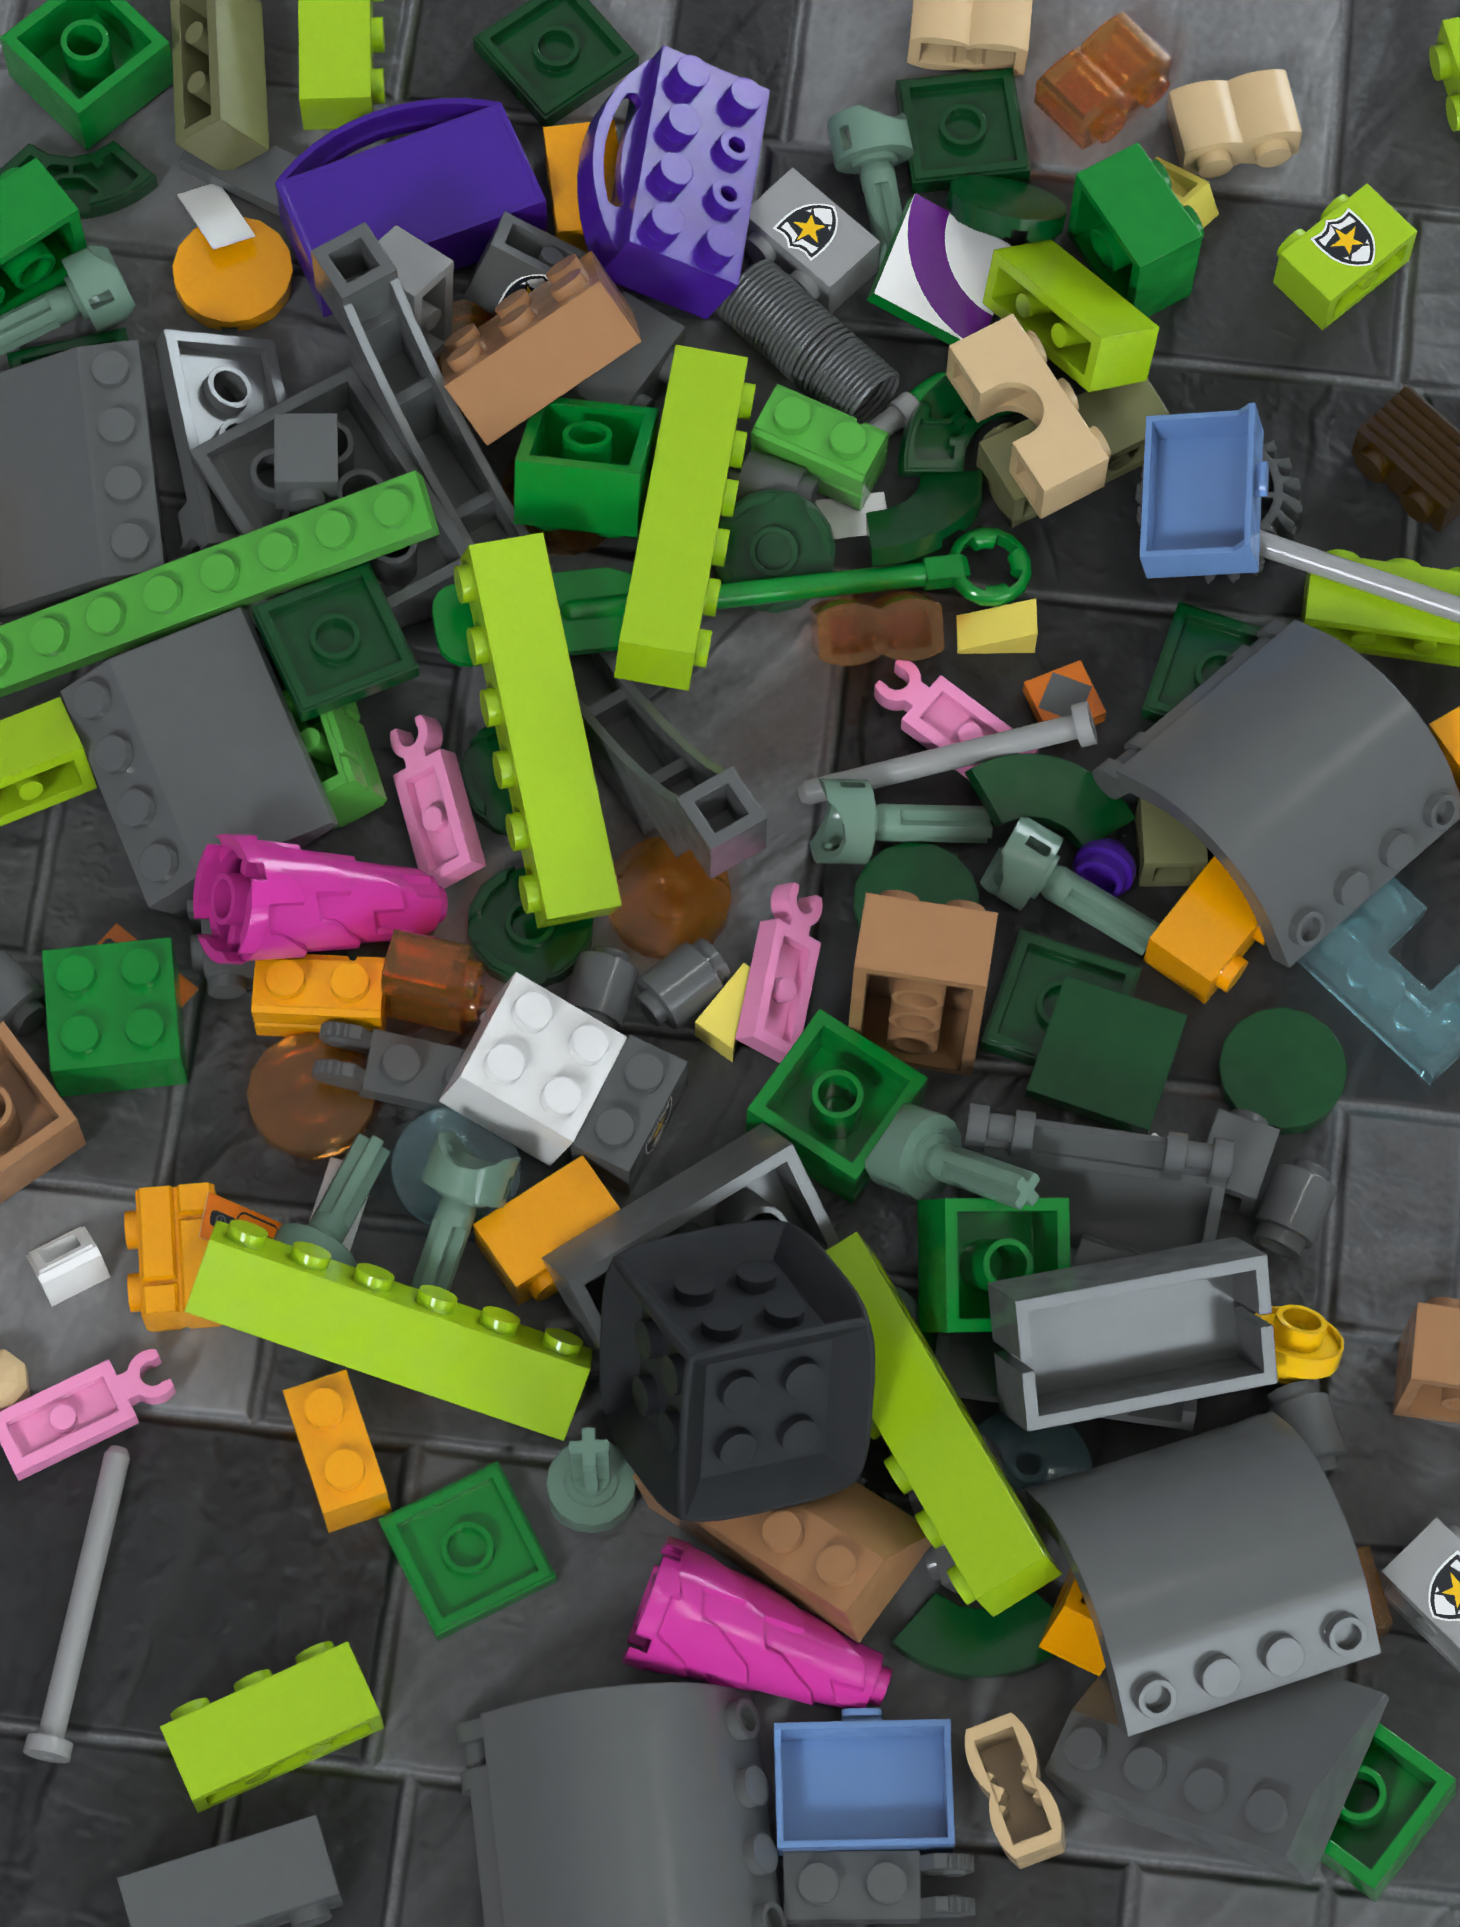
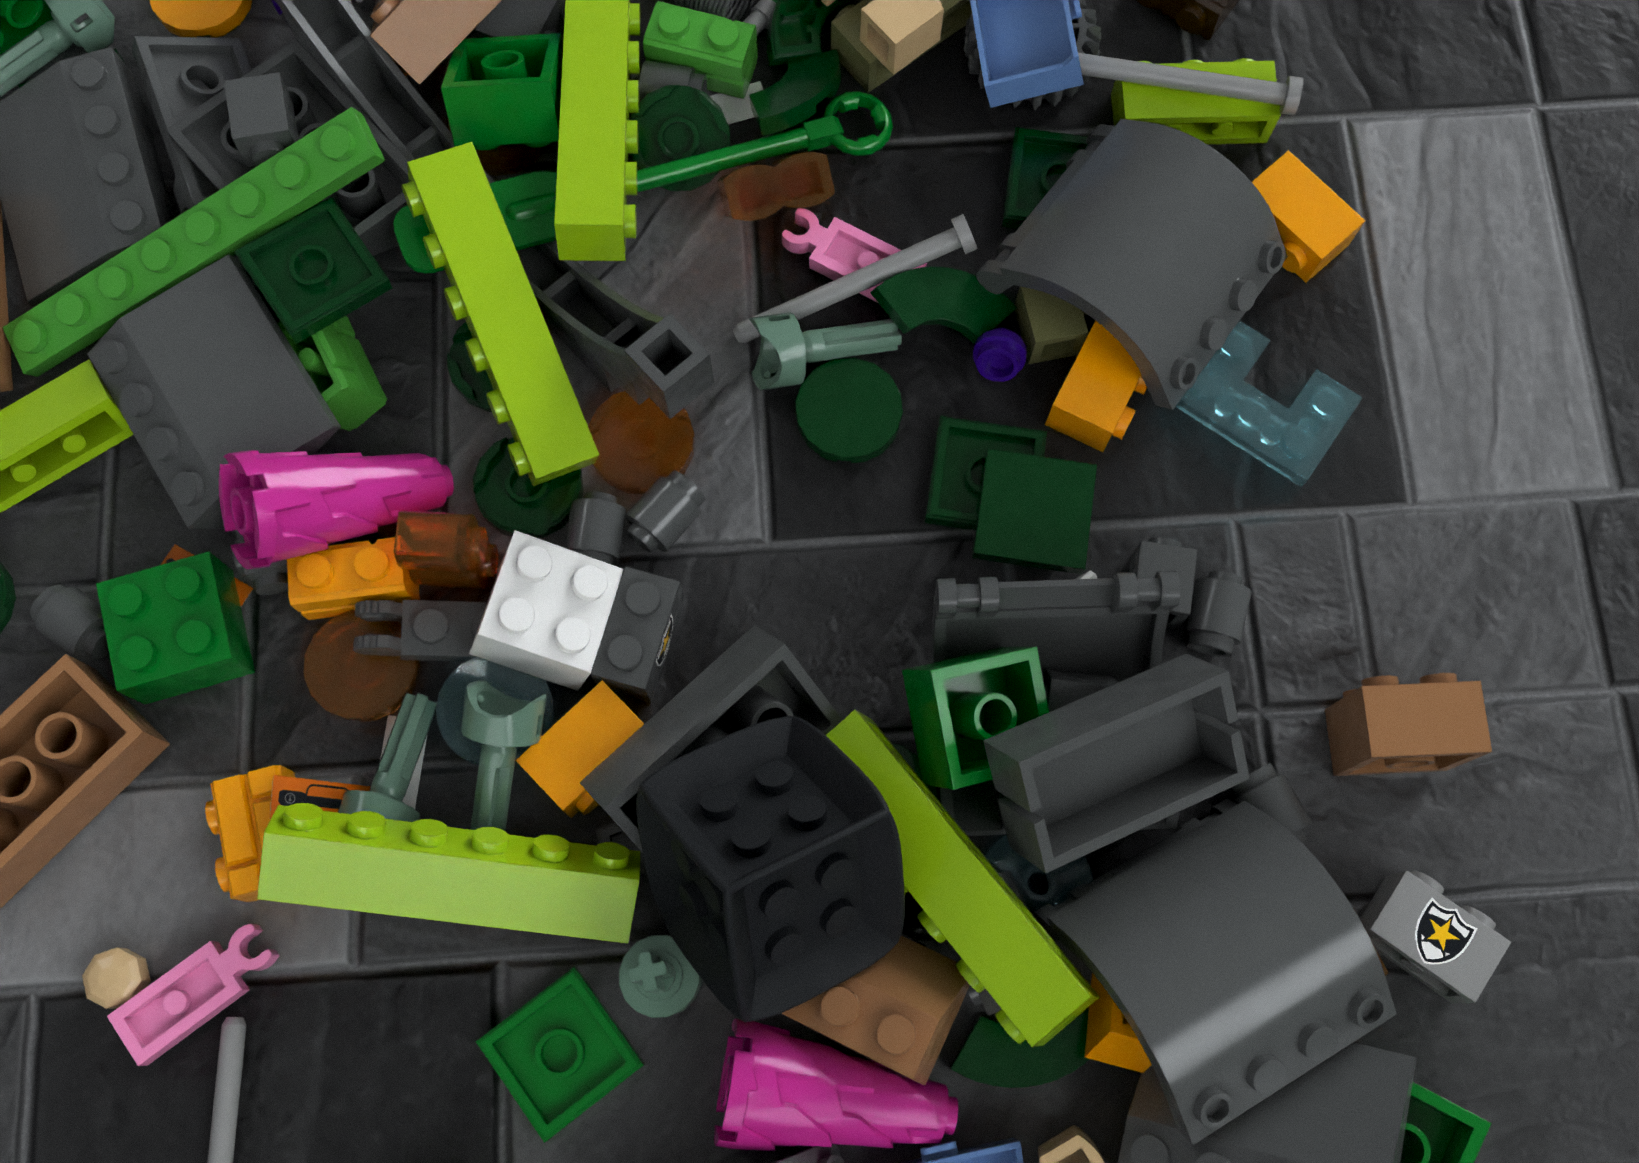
camera: 10 degrees left, 5 degrees up
(68, 1265) = (166, 857): white slope -> none
(337, 1451) = (426, 988): light orange brick -> none
(436, 805) = (430, 396): bright pink plate -> none
(720, 1019) = (704, 534): light yellow piece -> none
(781, 974) = (747, 491): bright pink plate -> none
(835, 1101) = (815, 594): green brick -> none
(922, 979) = (873, 473): medium nougat brick -> none
(925, 1154) = (901, 628): sand green piece -> none
(998, 629) = (875, 173): light yellow piece -> none
(1031, 868) = (942, 363): sand green piece -> none
(1057, 690) = (934, 215): tile -> none
(1282, 1069) = (1180, 495): dark green tile -> none
(1304, 1343) = (1262, 733): yellow plate -> none

